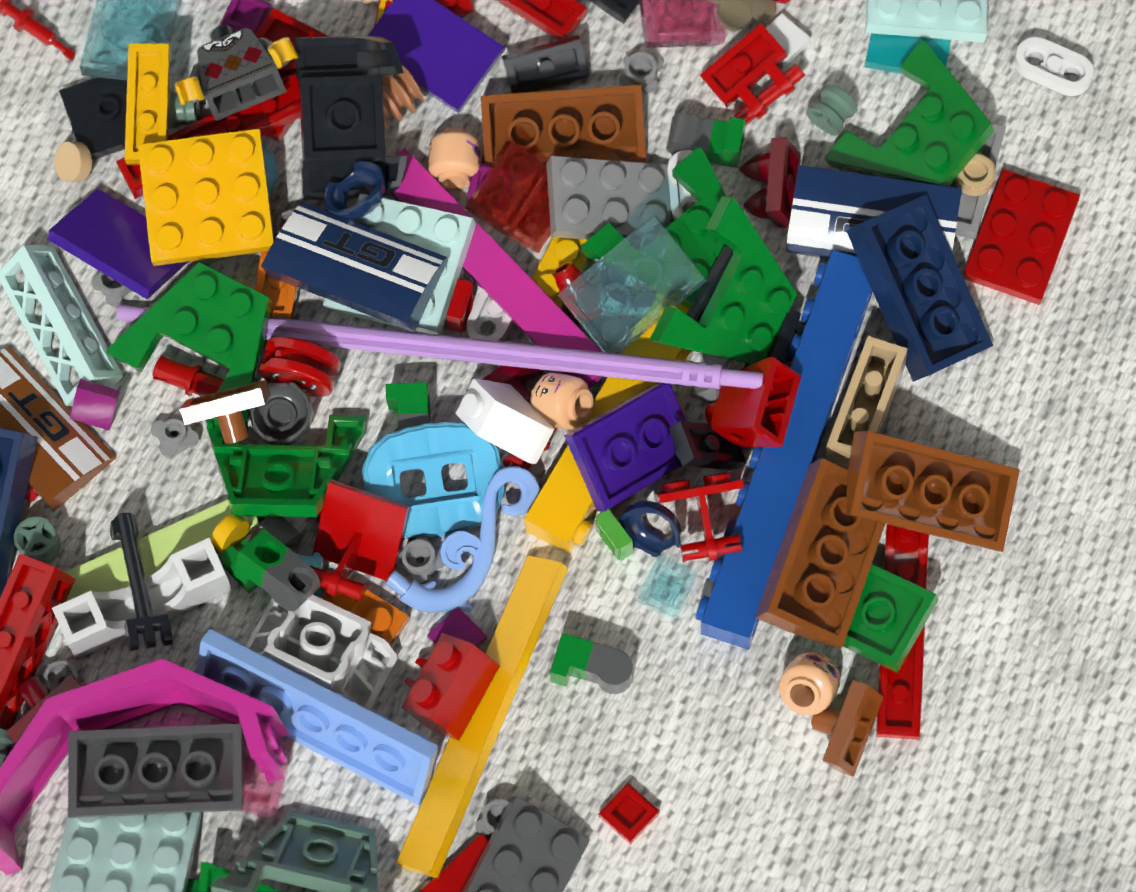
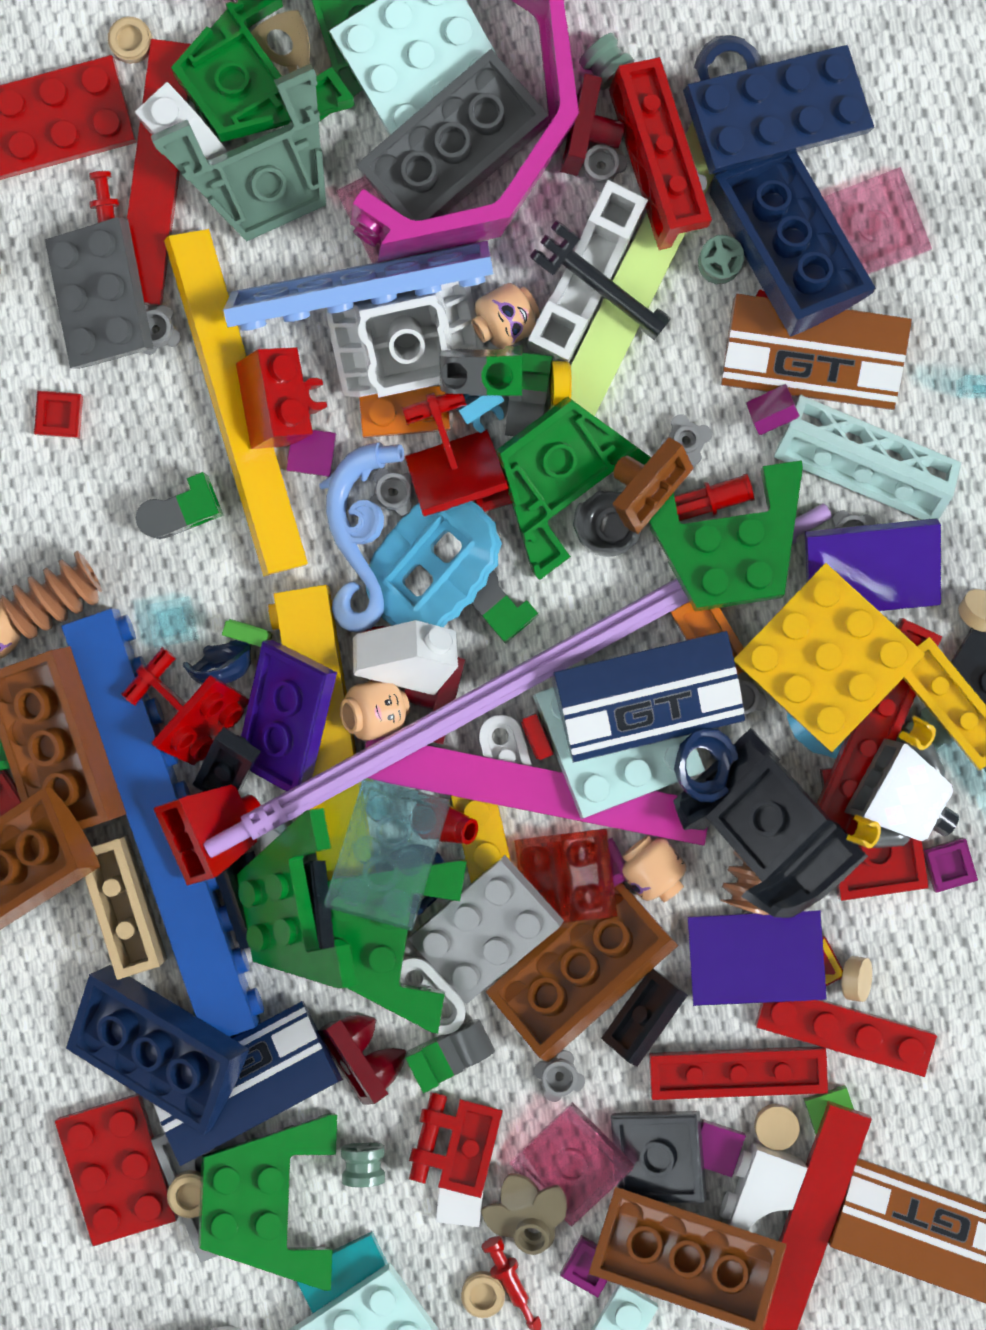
camera: 140 degrees right, 20 degrees up
(228, 614) = (505, 315): none -> light nougat head
(301, 363) = (625, 571): red head -> none
(738, 672) = (53, 597): none -> nougat piece

